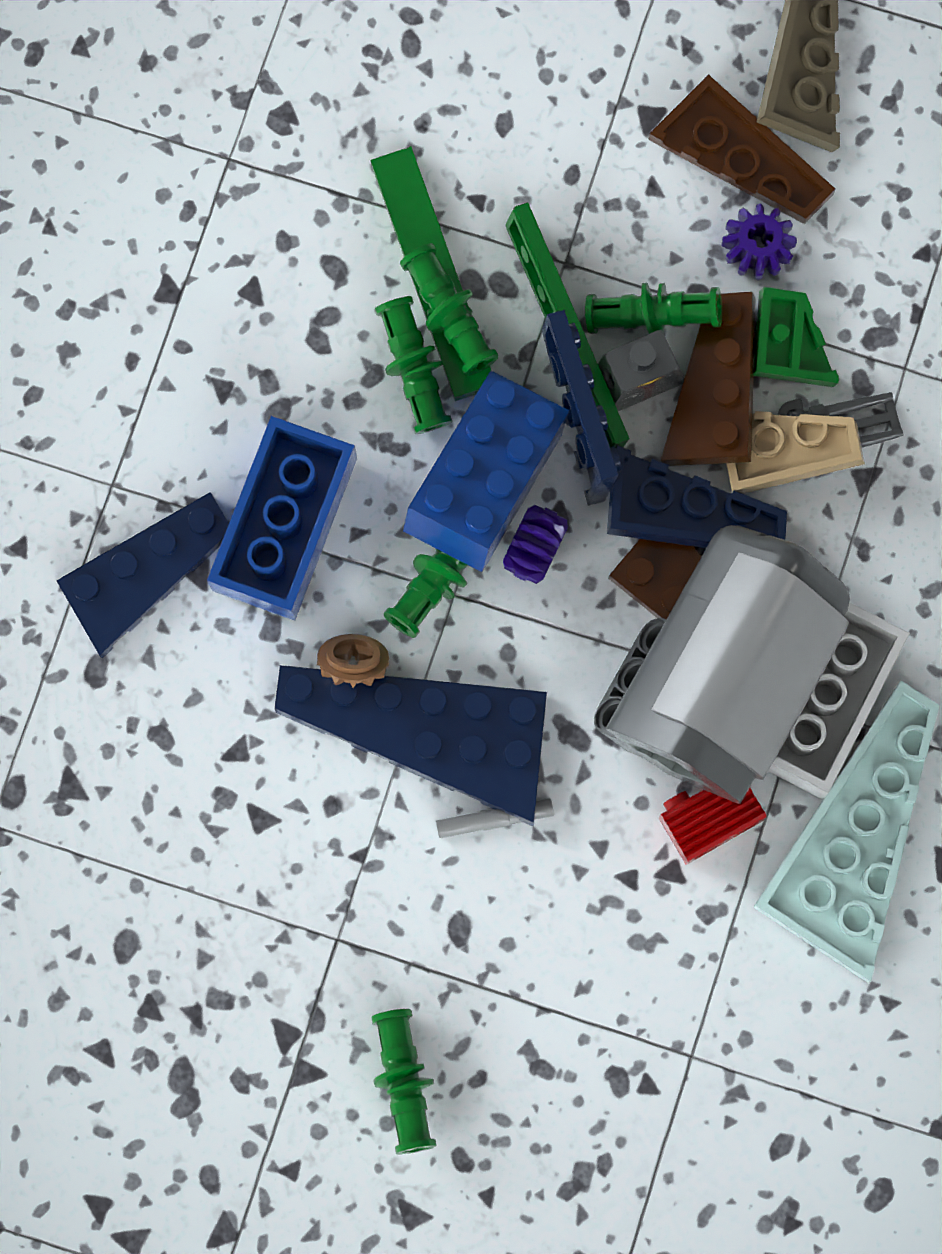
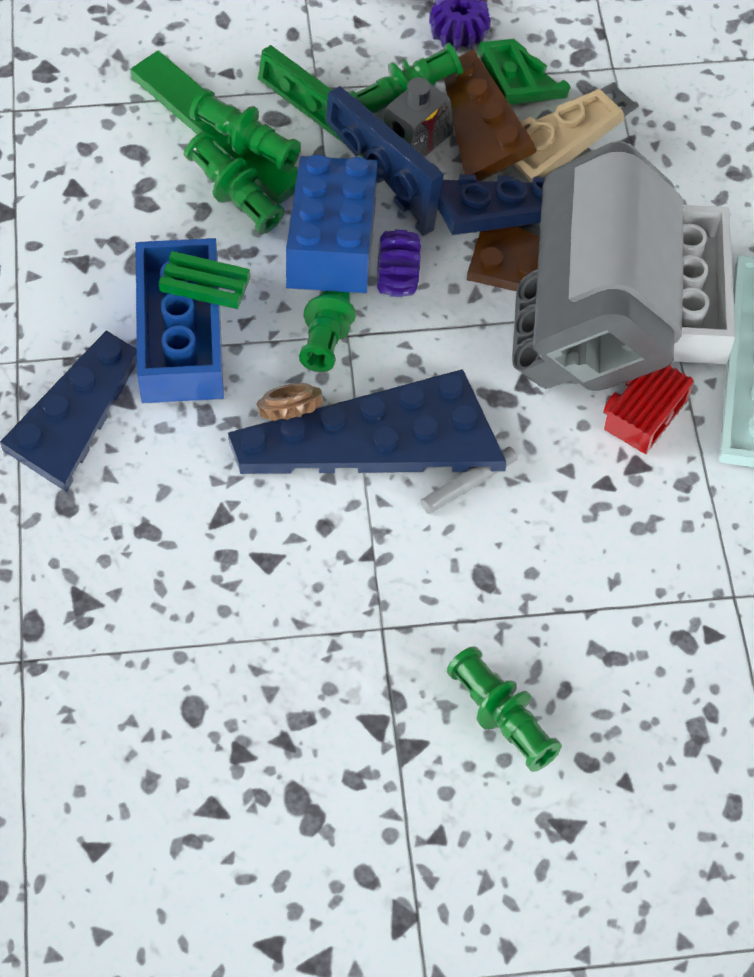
camera: 30 degrees left, 20 degrees down
(288, 474) = (206, 274): none -> green tile

